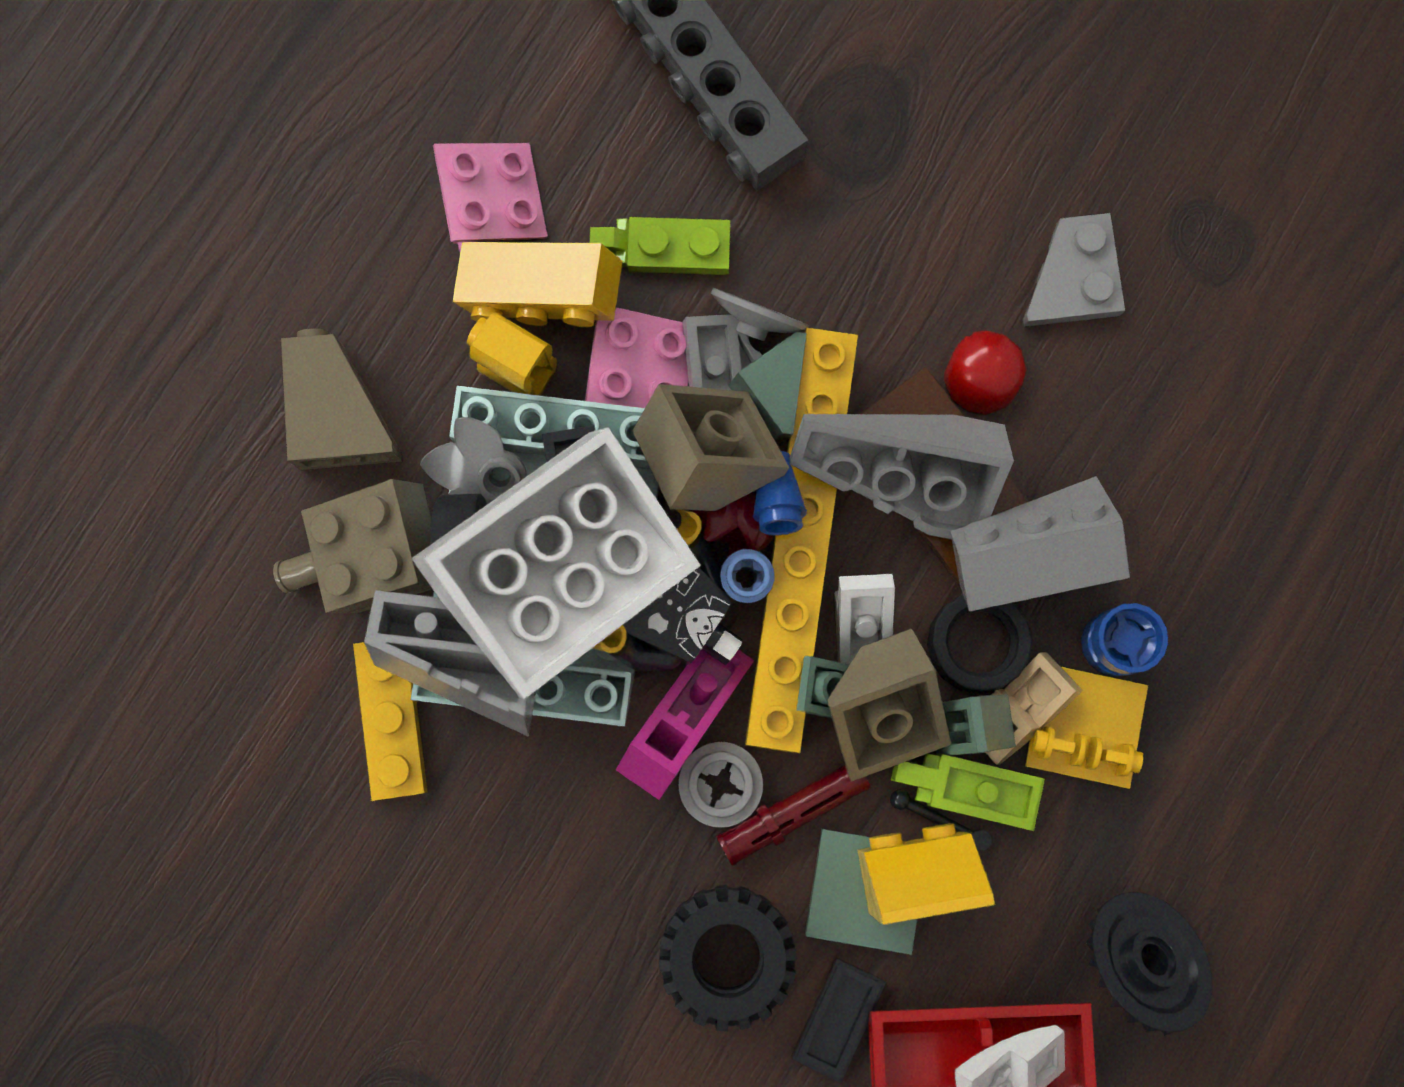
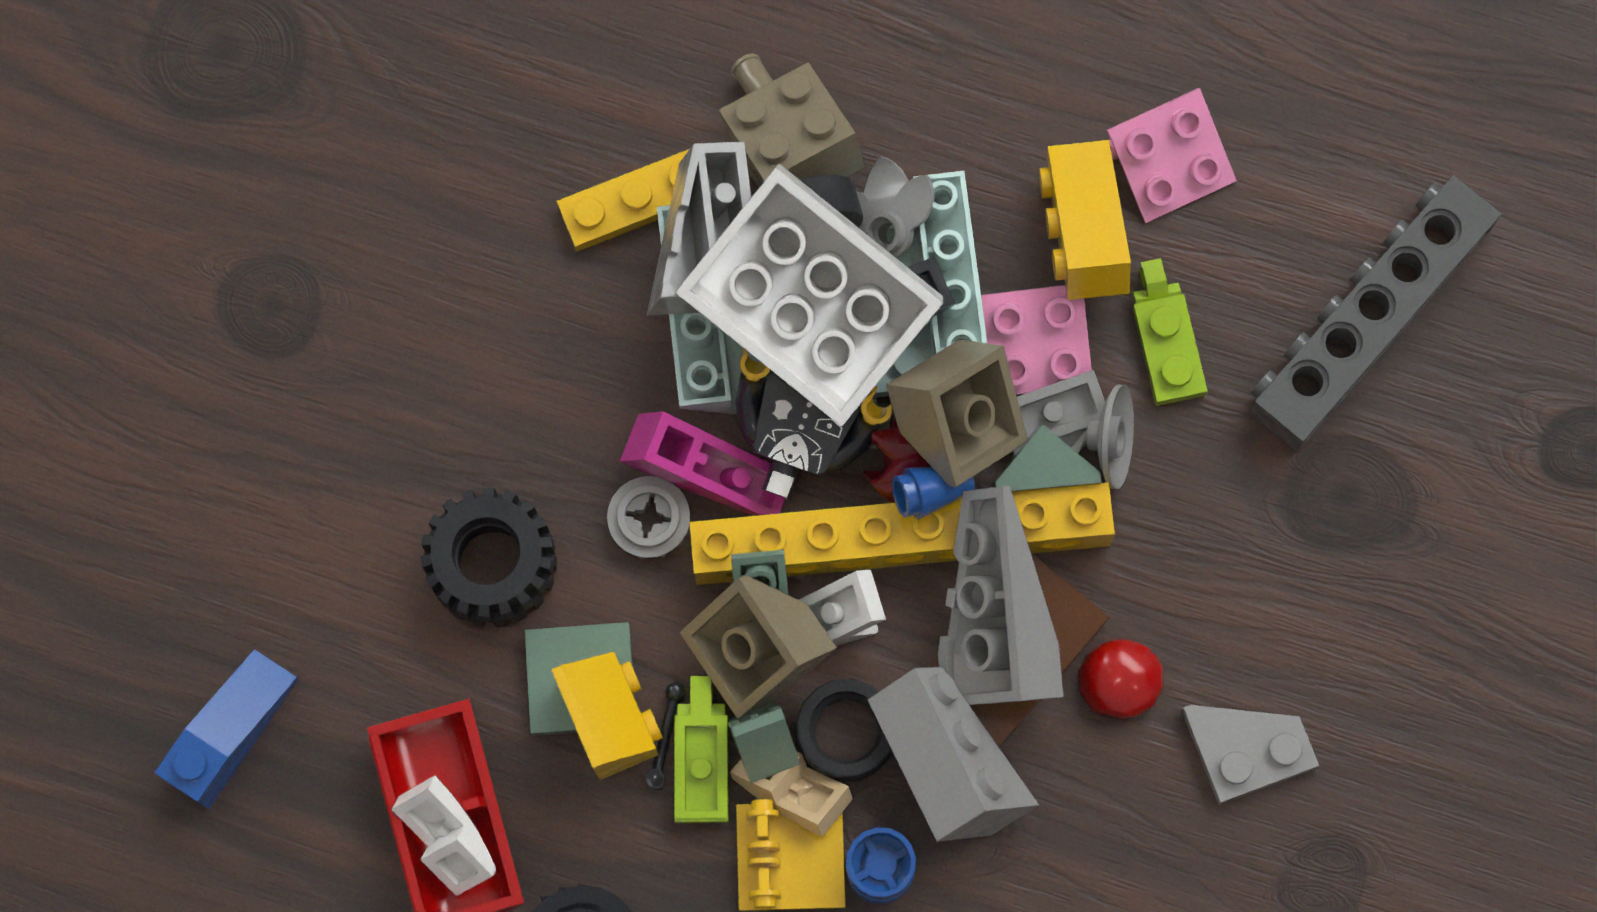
camera: 80 degrees right, 5 degrees down
(329, 407) = (919, 63): dark tan slope -> none
(511, 355) = (1006, 215): yellow brick -> none
(757, 565) = (843, 470): medium blue cone -> none
(784, 817) = (633, 585): dark red pin -> none
(838, 1019) = (448, 678): black tile -> none

